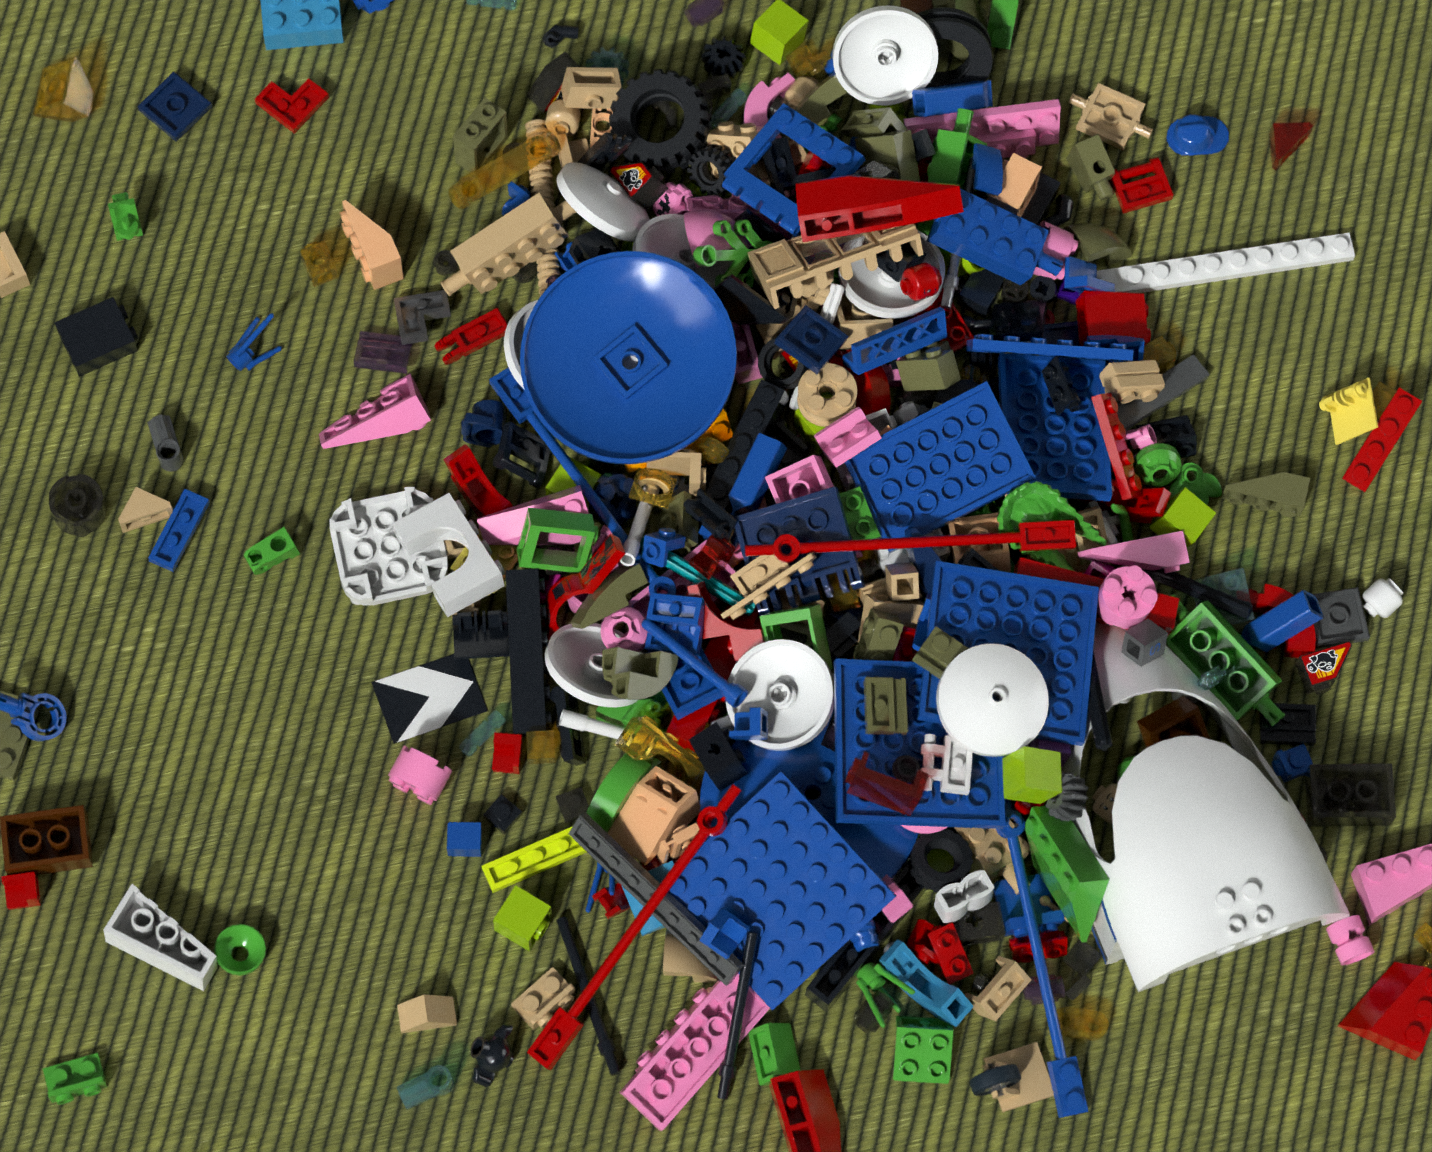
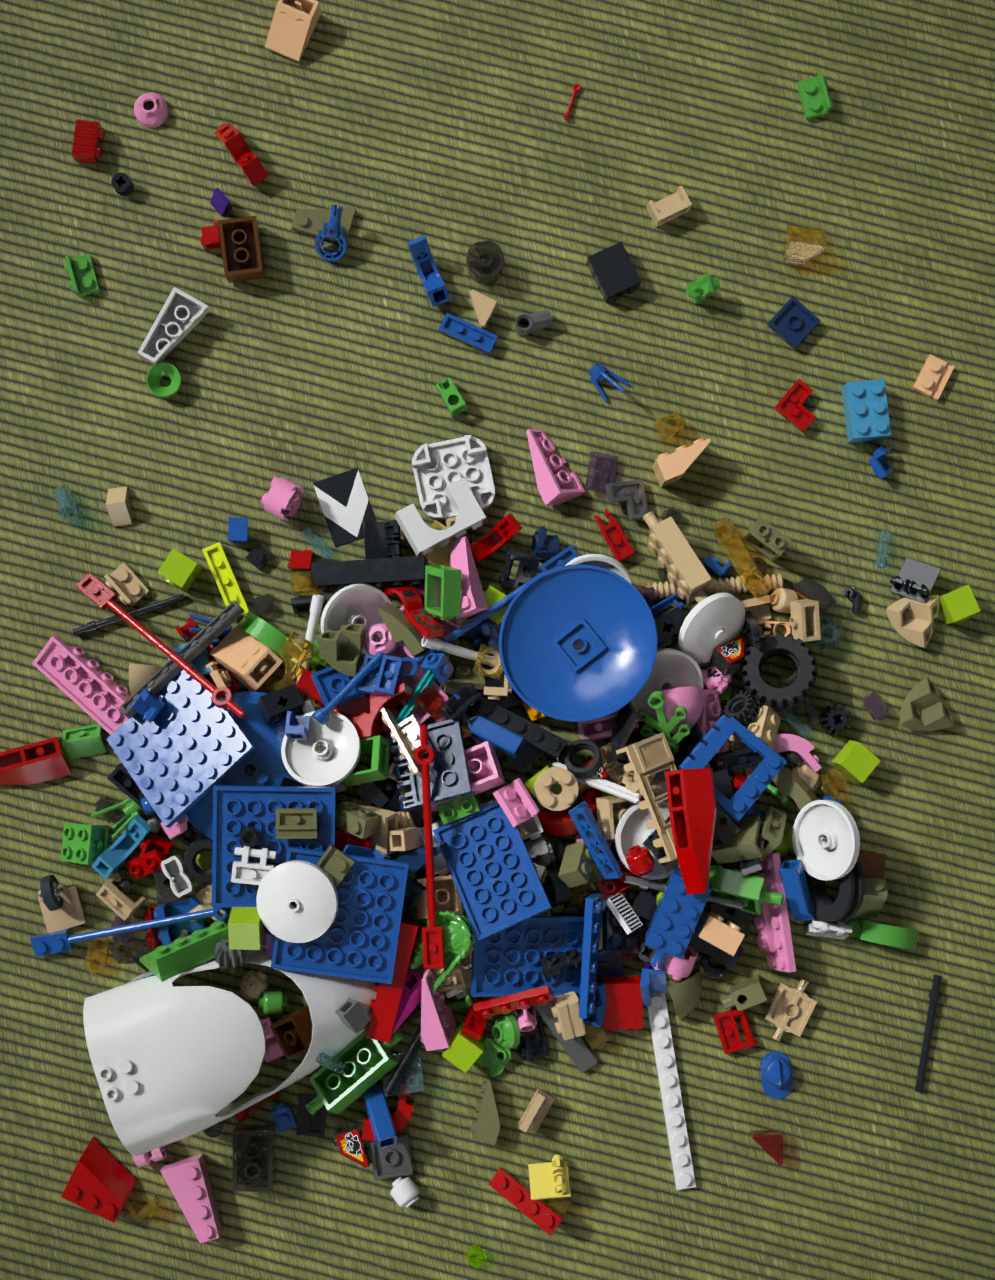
camera: 90 degrees right, 15 degrees up
(93, 583) = (427, 271): none -> blue arch
(491, 1055) = (86, 548): black piece -> none
(711, 450) = (511, 702): clear yellow plate -> none
(727, 1068) = (73, 708): black bar -> none
(811, 339) = (595, 778): dark blue plate -> none
(884, 789) = (221, 839): clear red panel -> none
(988, 169) = (732, 915): blue slope -> none
(992, 314) = (624, 913): none -> white tile
(1003, 66) = (830, 930): none -> white plate
(1097, 711) = (292, 979): black axle -> none
(1140, 595) = (383, 1015): bright pink brick -> none
(1262, 432) = (535, 1111): none -> tan bracket

